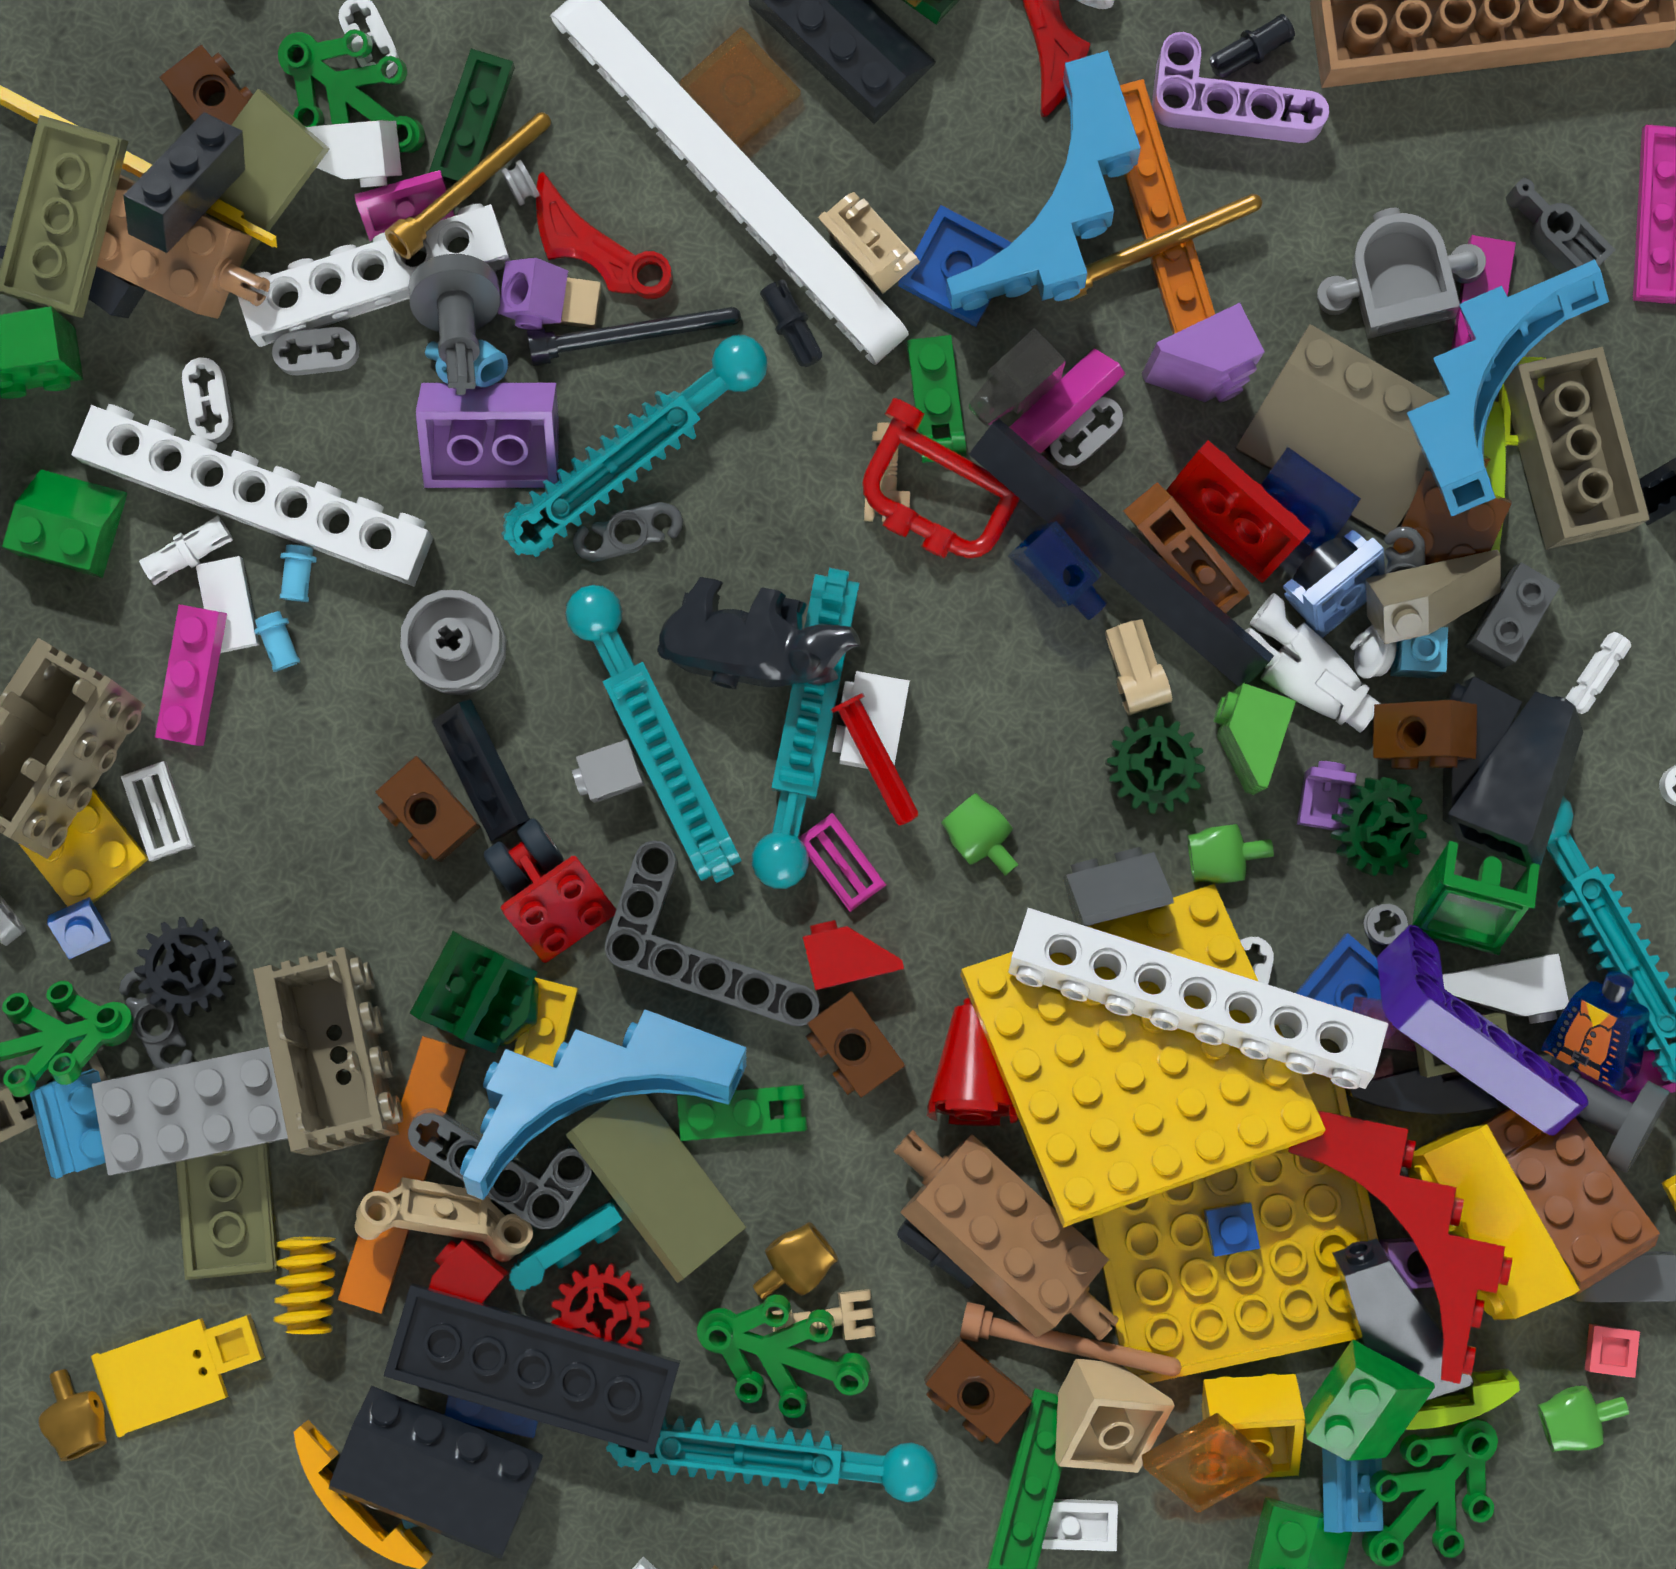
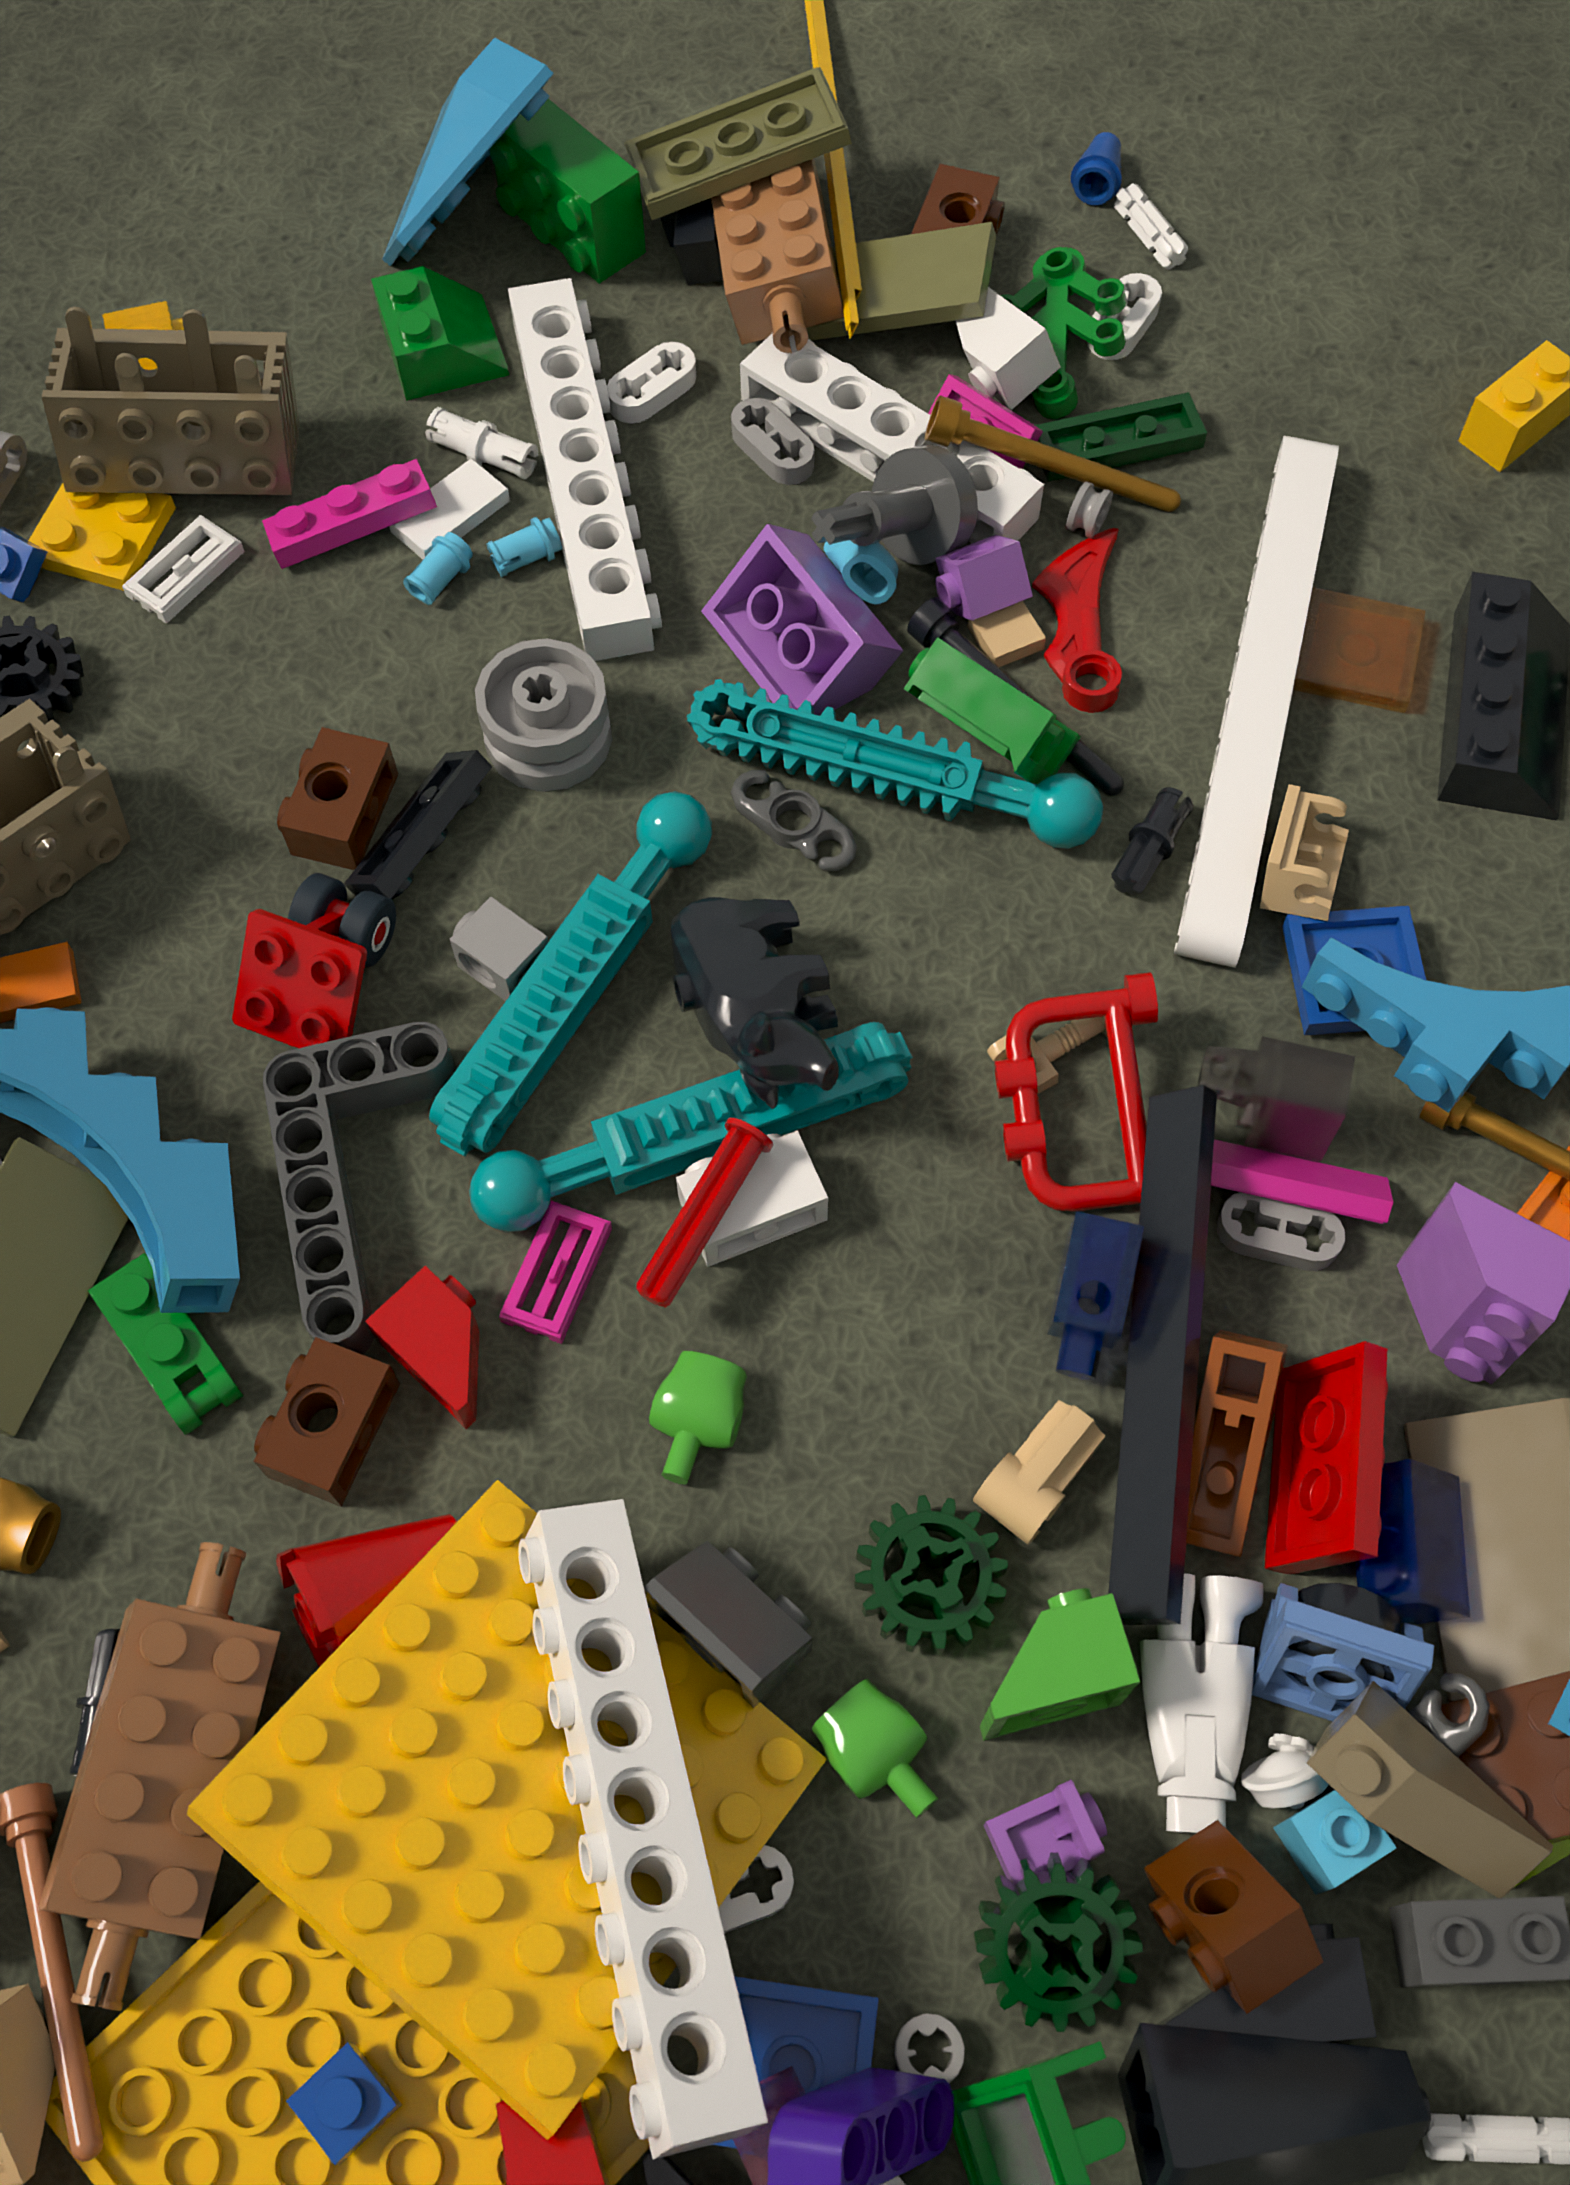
camera: 60 degrees right, 20 degrees down
(184, 182) = (846, 195): black brick -> none
(478, 994) = (139, 949): dark green piece -> none
(553, 1021) = (170, 1050): yellow plate -> none
(647, 363) = (991, 711): none -> green window
(936, 390) = (1214, 1017): green plate -> none

